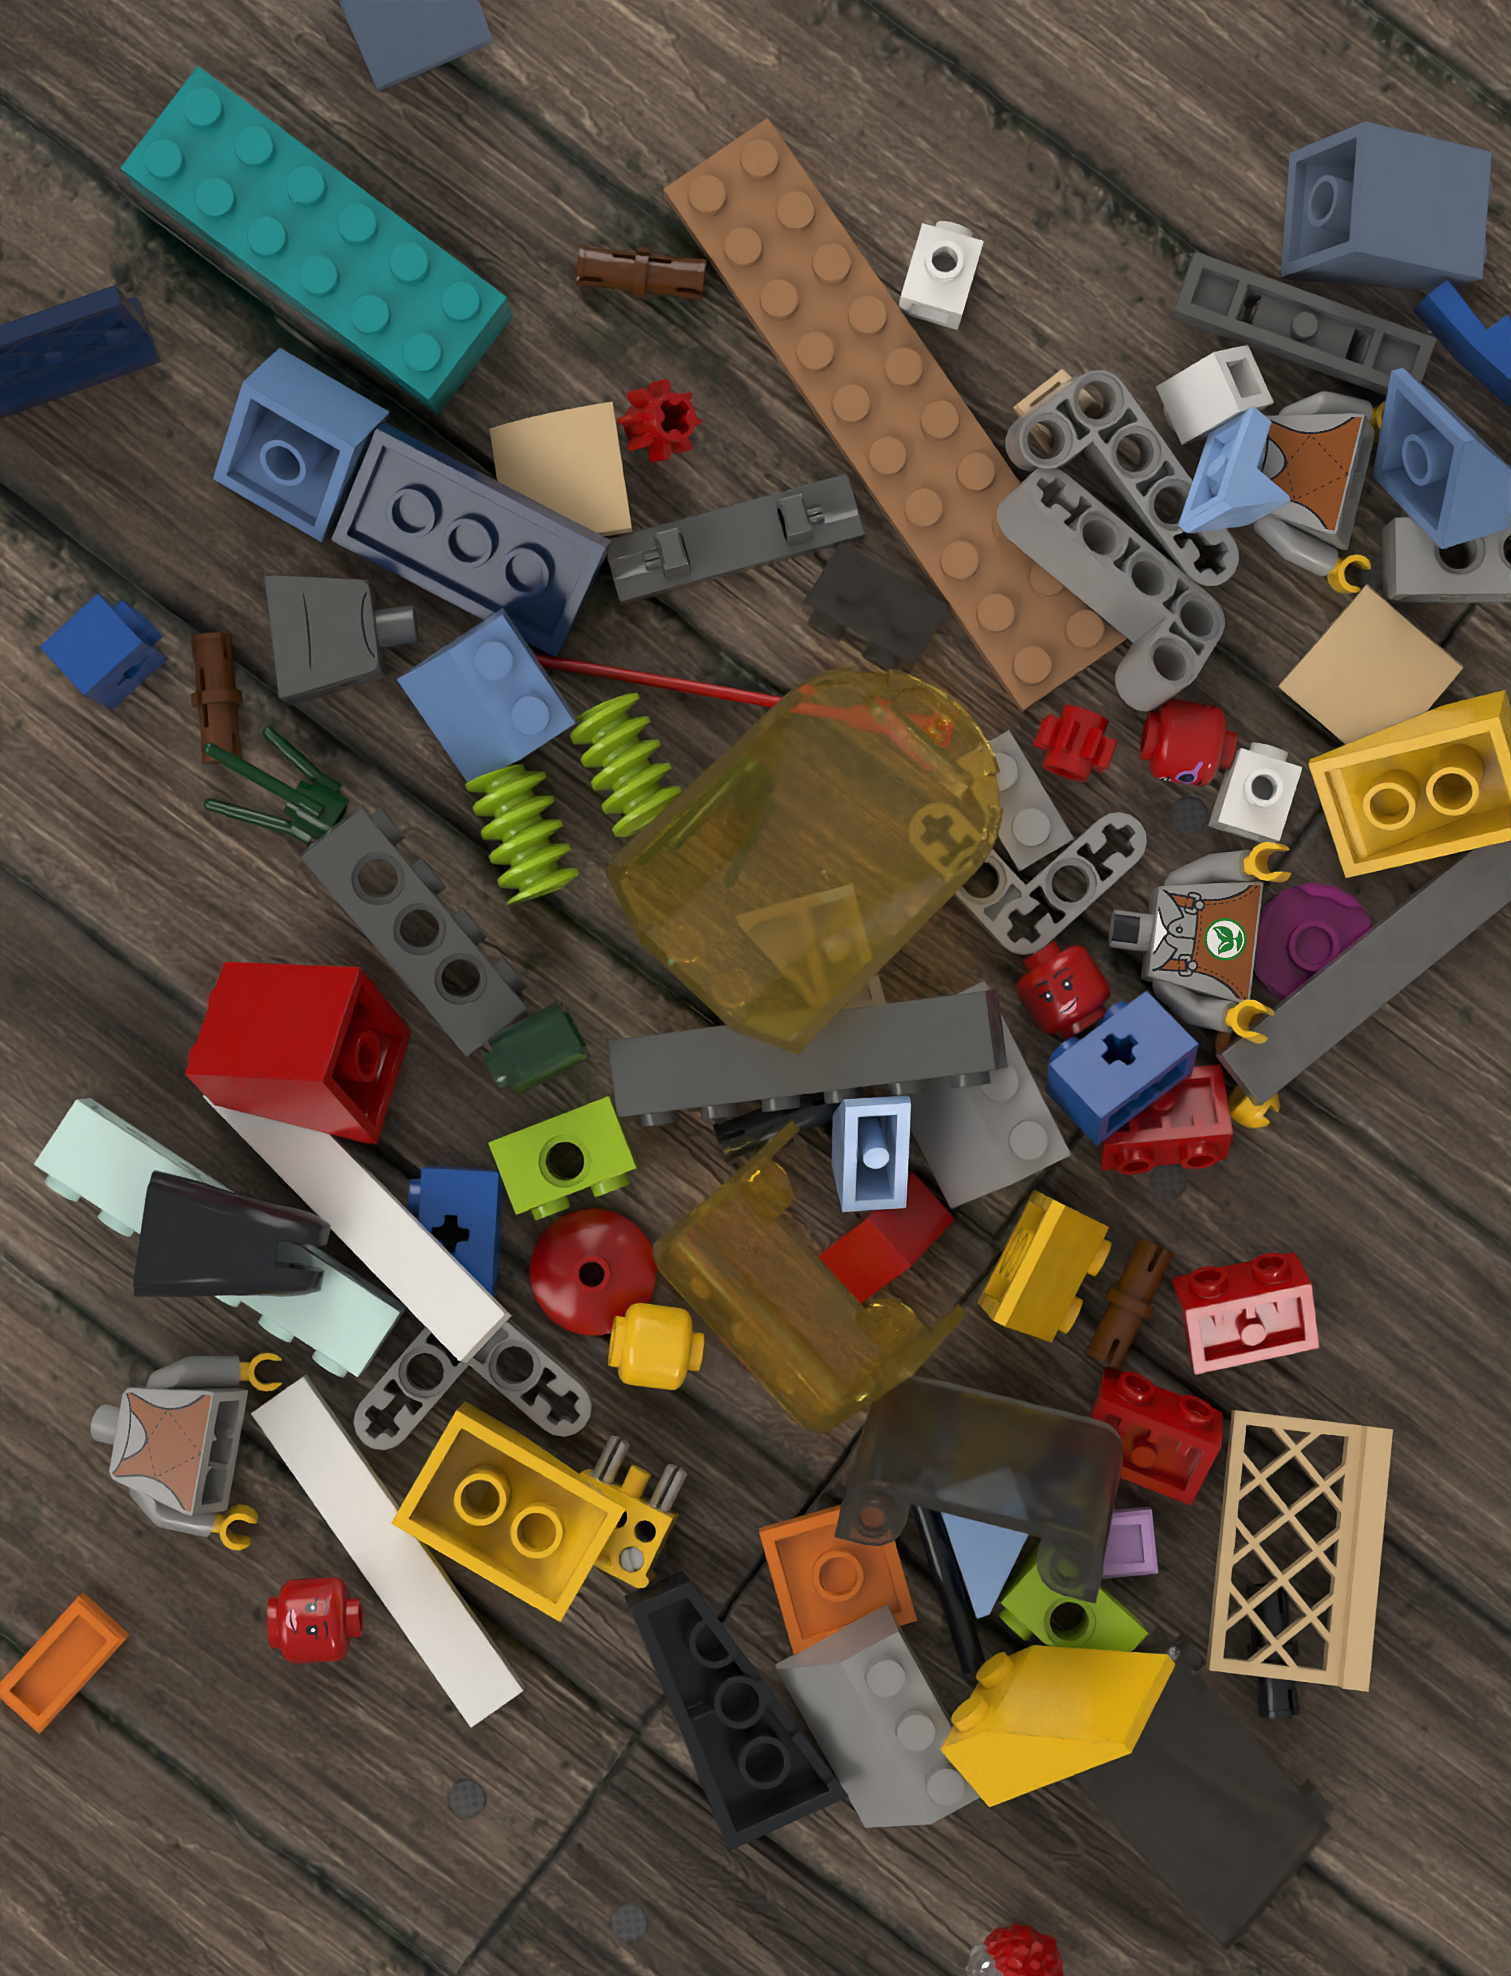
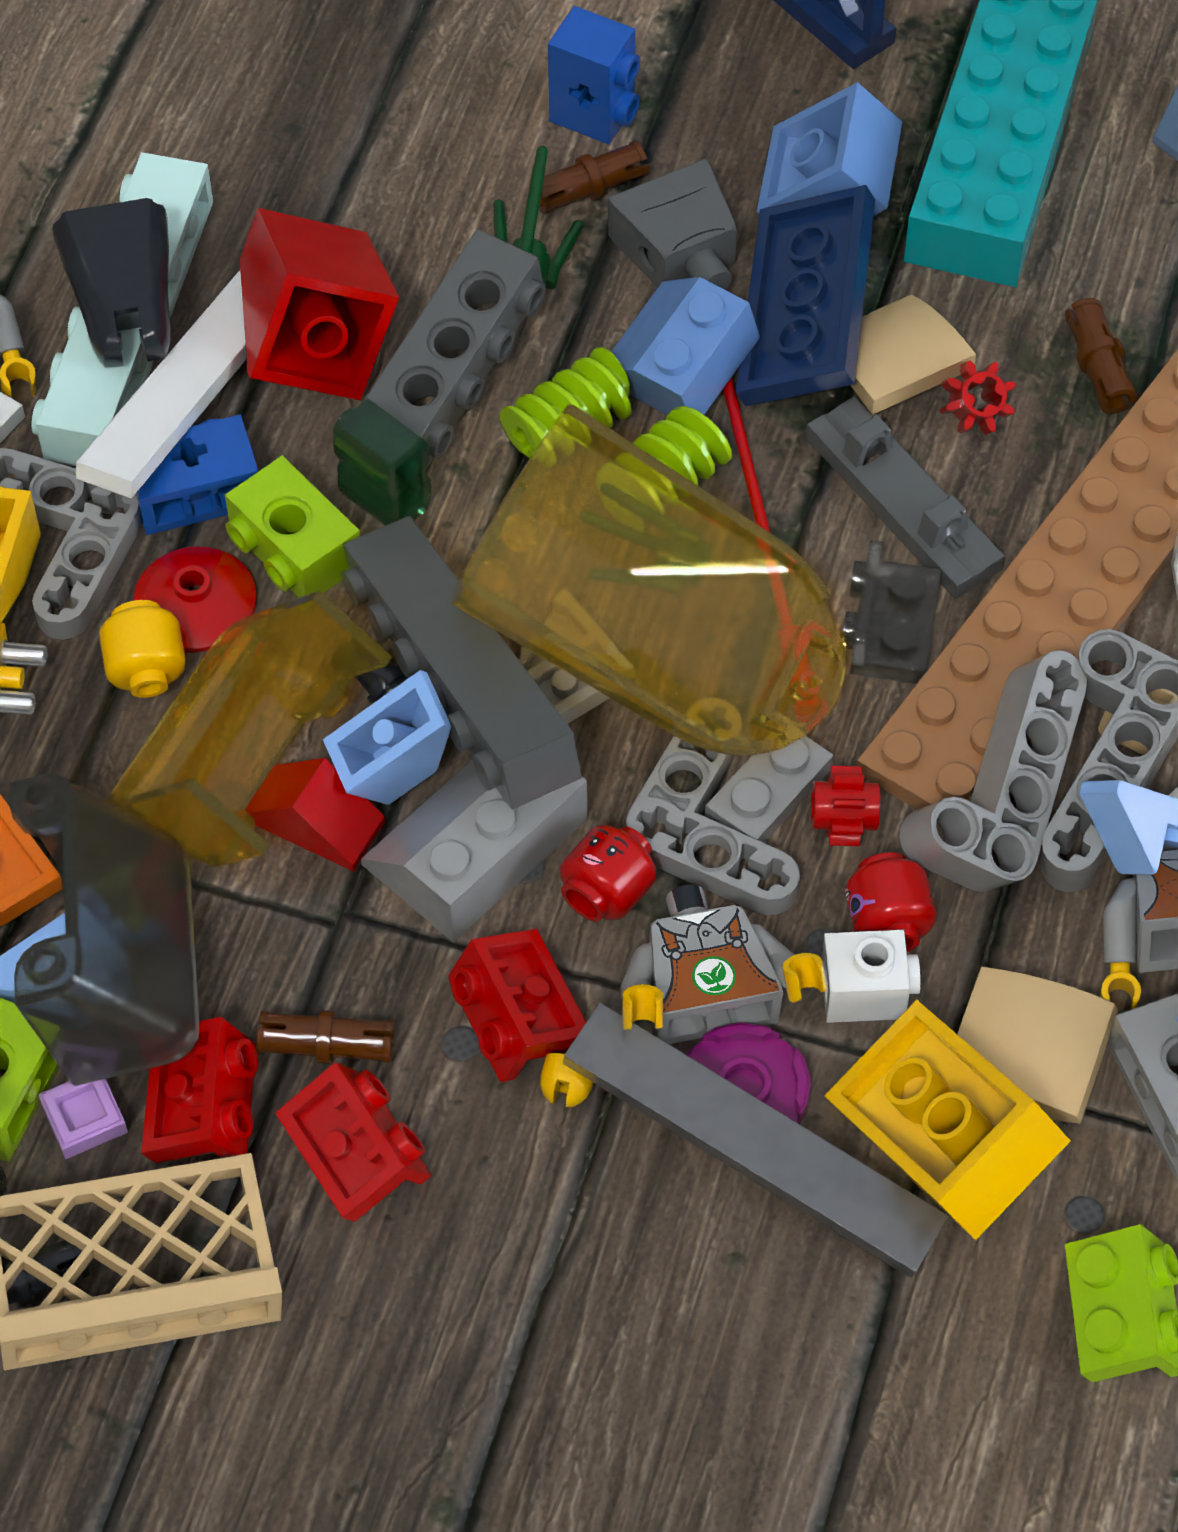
camera: 75 degrees right, 30 degrees down
(1044, 1268) = (331, 910): yellow slope -> none
(1108, 1096) = (551, 929): brick -> none

